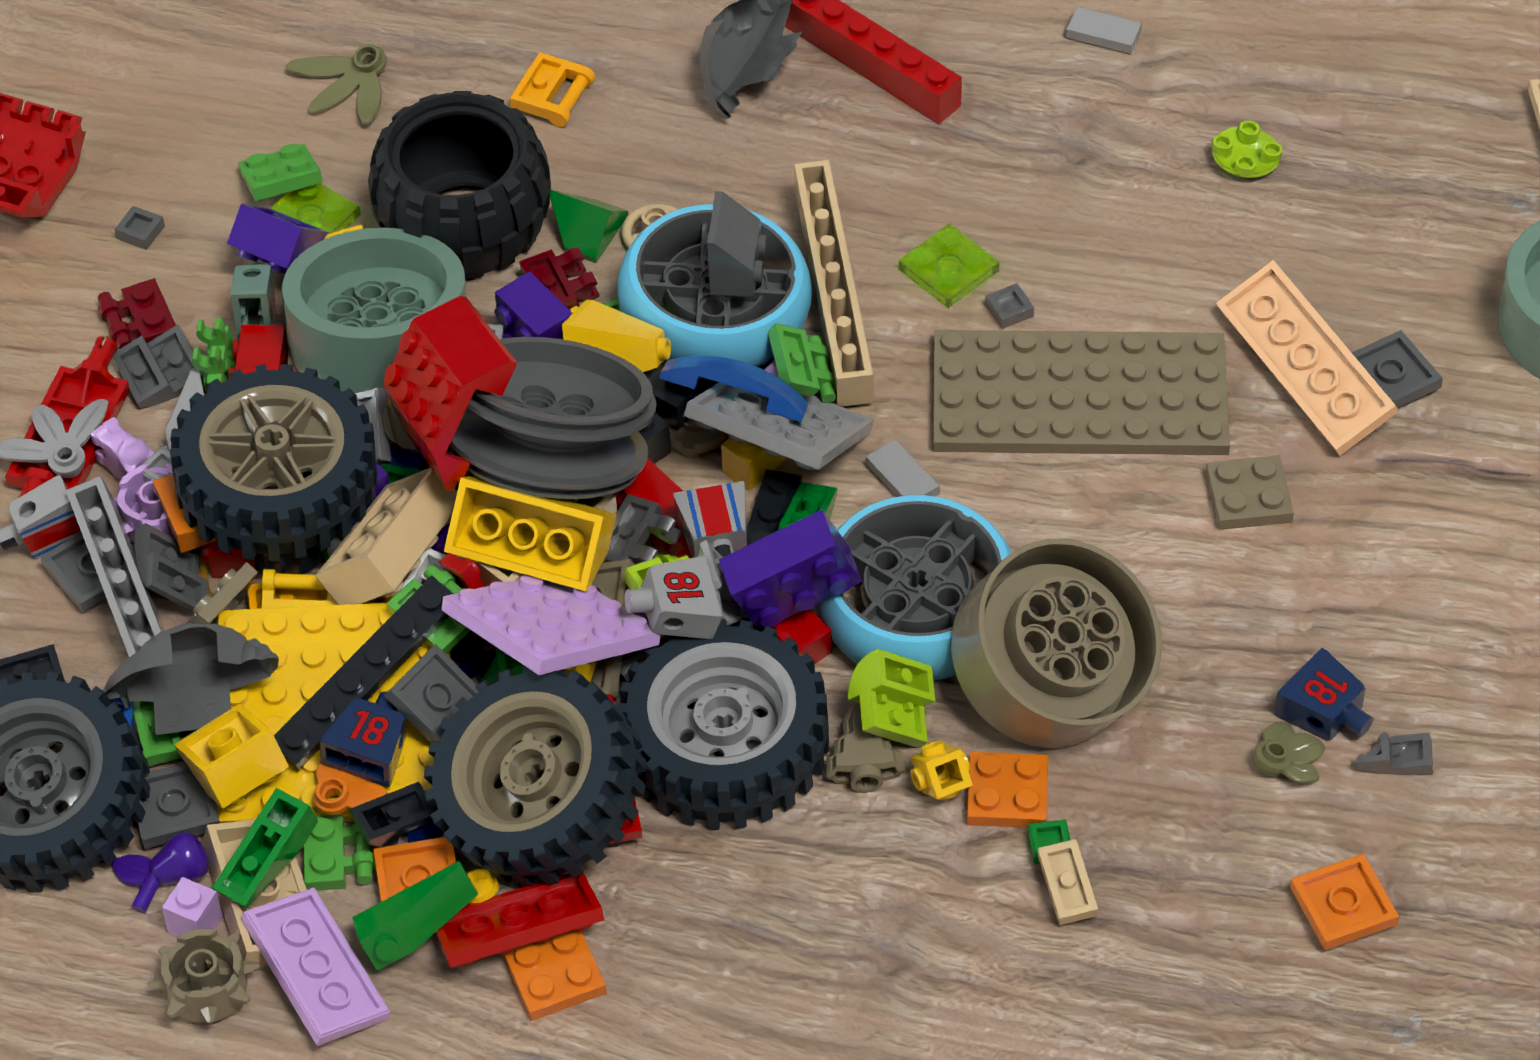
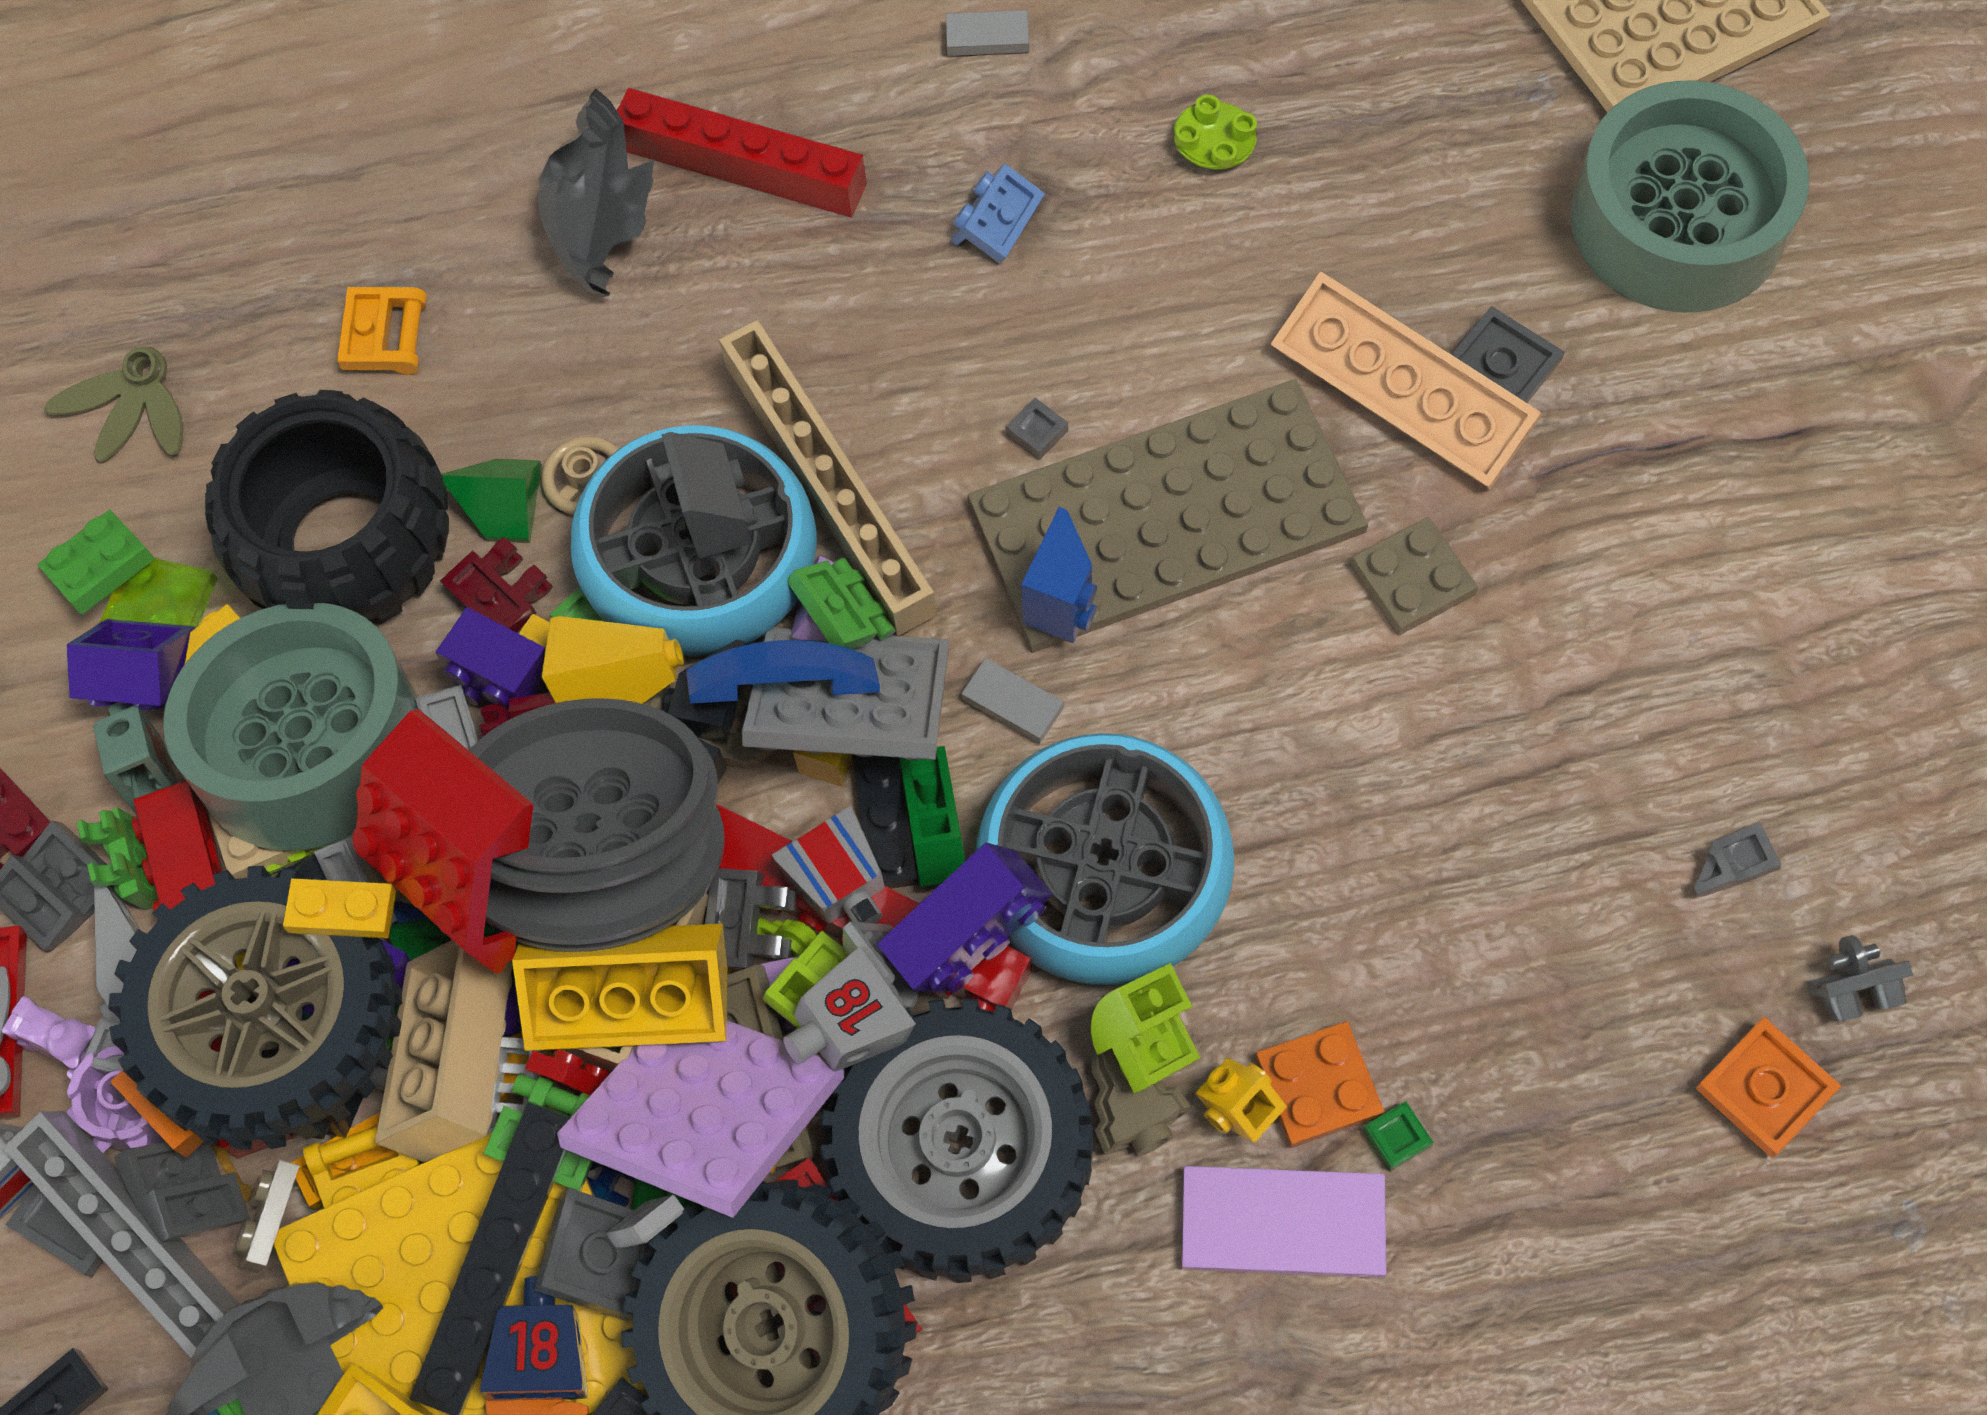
camera: 20 degrees left, 15 degrees up
(357, 409) = (339, 908): none -> yellow plate
(475, 671) = (645, 1221): none -> light grey tile
(937, 864) = (1284, 1222): none -> lavender tile
(948, 265) = (945, 400): clear neon green plate -> none
(965, 396) = (1059, 583): none -> blue slope
(1018, 687) = (1245, 904): dark tan wheel -> none
(1050, 152) = (998, 212): none -> medium blue bracket
(1067, 882) = (1448, 1190): tan plate -> none
(1288, 753) = (1616, 902): olive plate -> none
(1323, 699) = (1626, 822): dark blue torso -> none
(1469, 860) = (1839, 989): none -> dark grey hips

